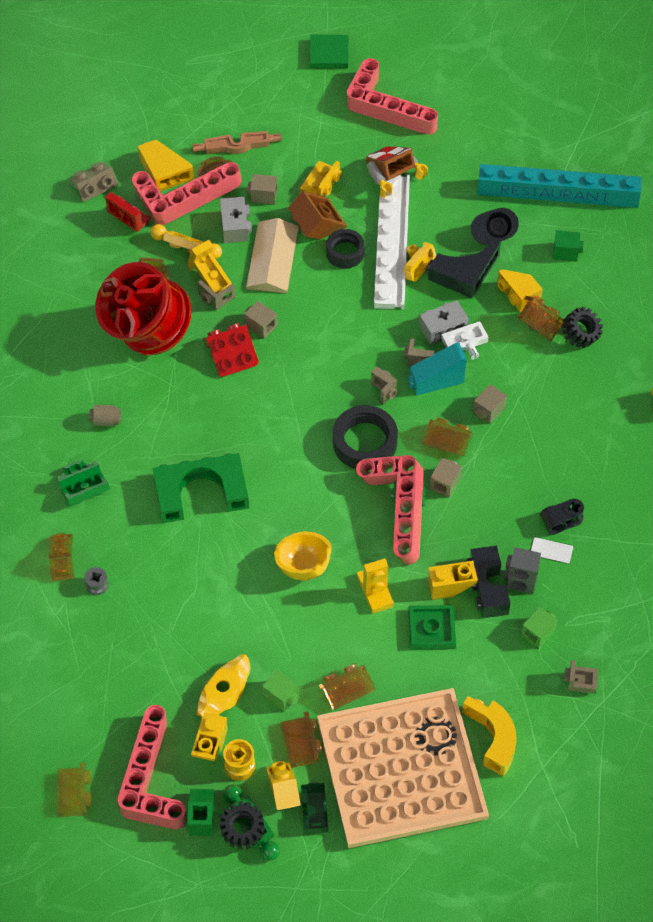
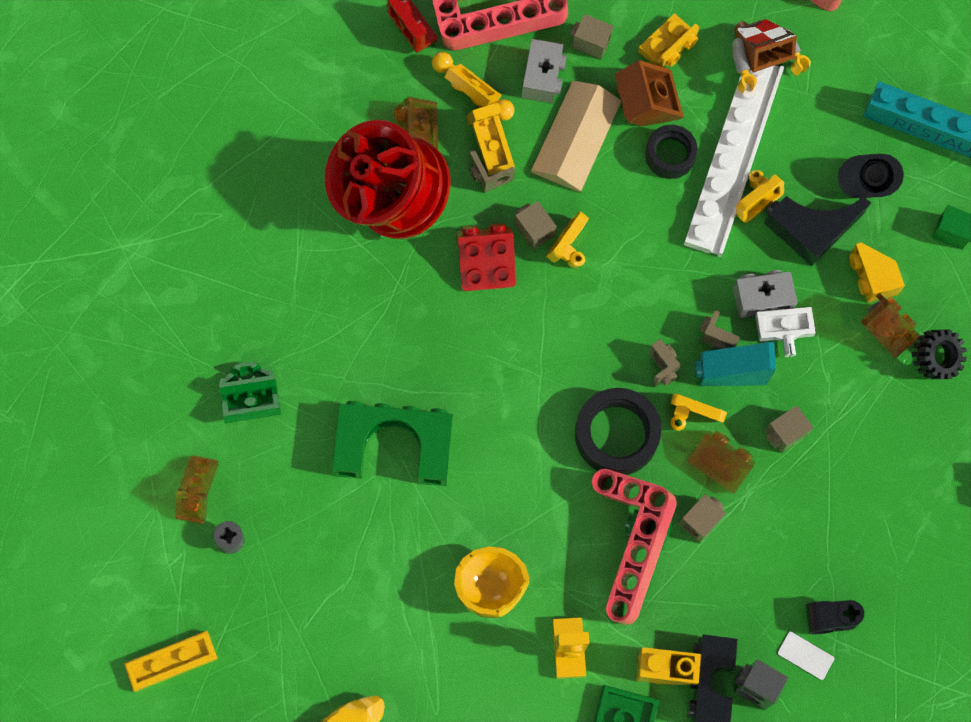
camera: 10 degrees right, 15 degrees up
(77, 676) = (170, 661): none -> yellow tile
(105, 415) = (303, 308): dark tan brick -> none
(286, 329) = (562, 246): none -> yellow piece
(416, 406) = (685, 405): none -> yellow piece

